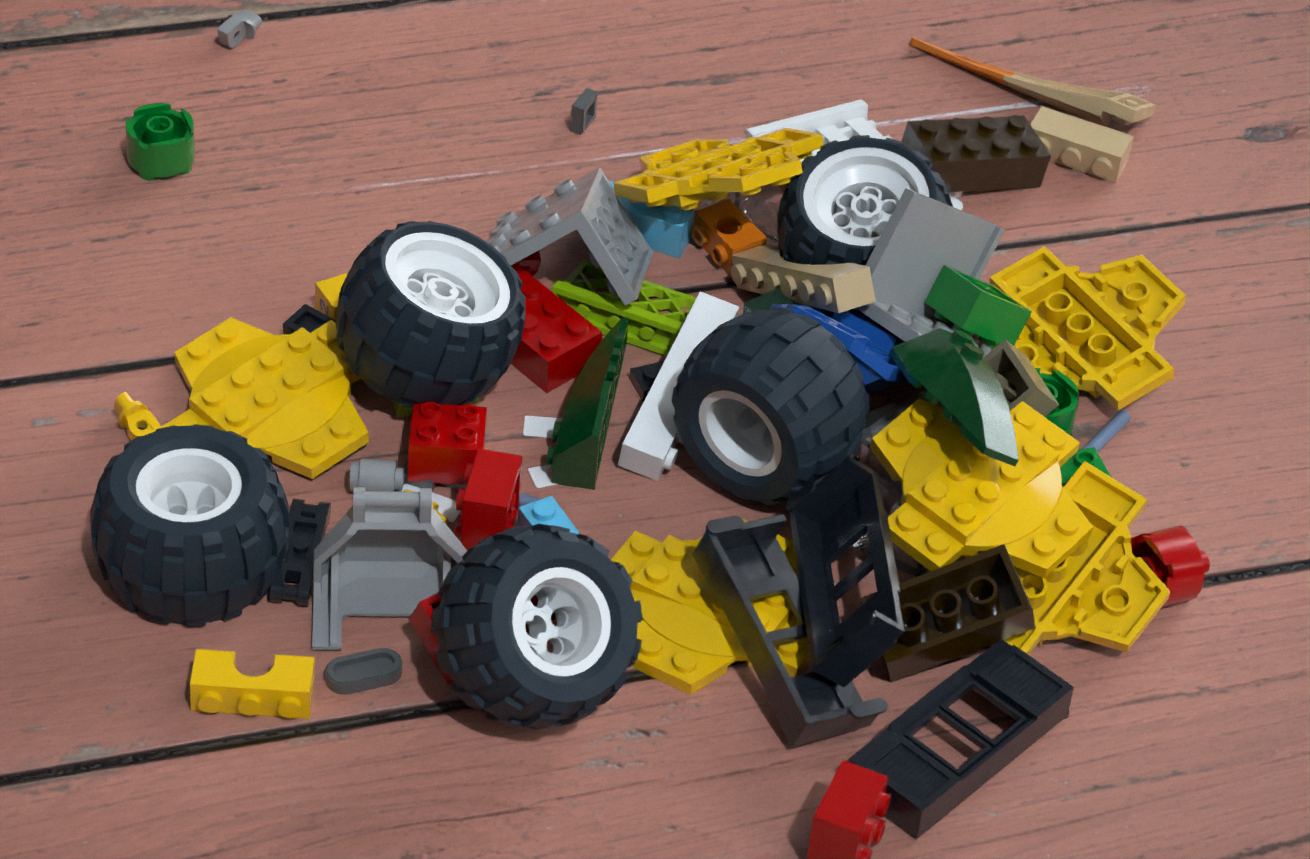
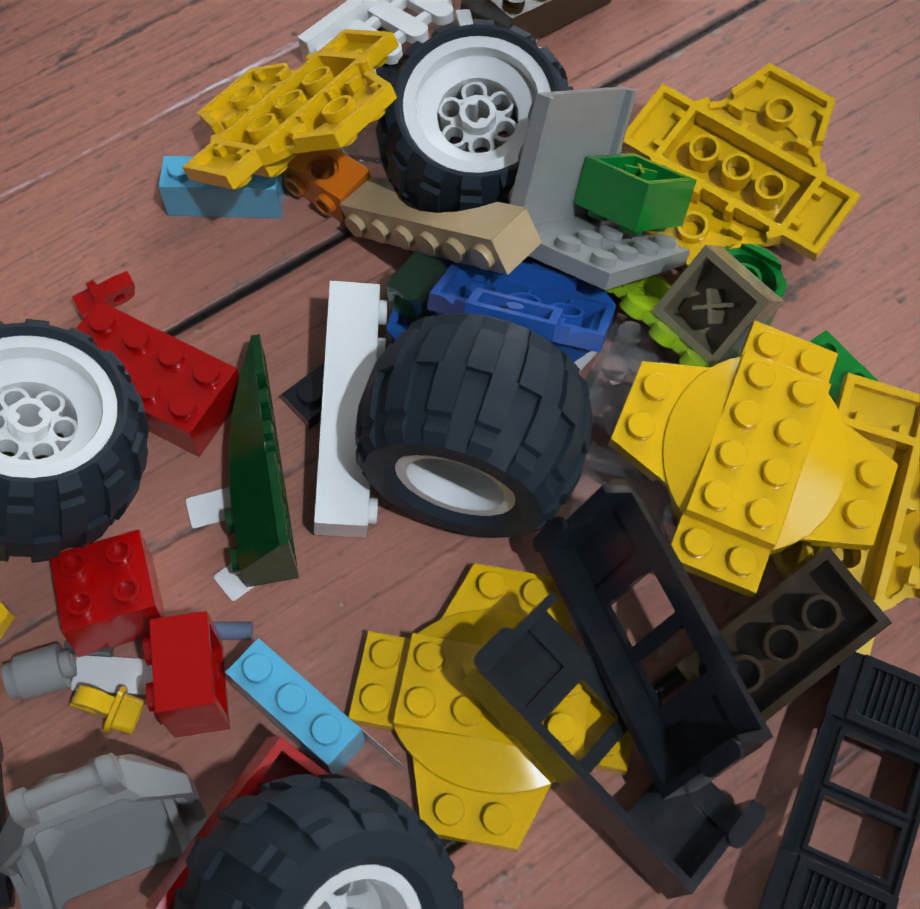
camera: 15 degrees left, 20 degrees up
(583, 111) = (117, 67): dark grey tile -> none
(599, 218) = (155, 223): light grey bracket -> none
(646, 325) = (232, 331): lime fence -> none
(963, 386) = (681, 325): dark green wedge -> none
(1109, 430) = (809, 298): sand blue bar -> none

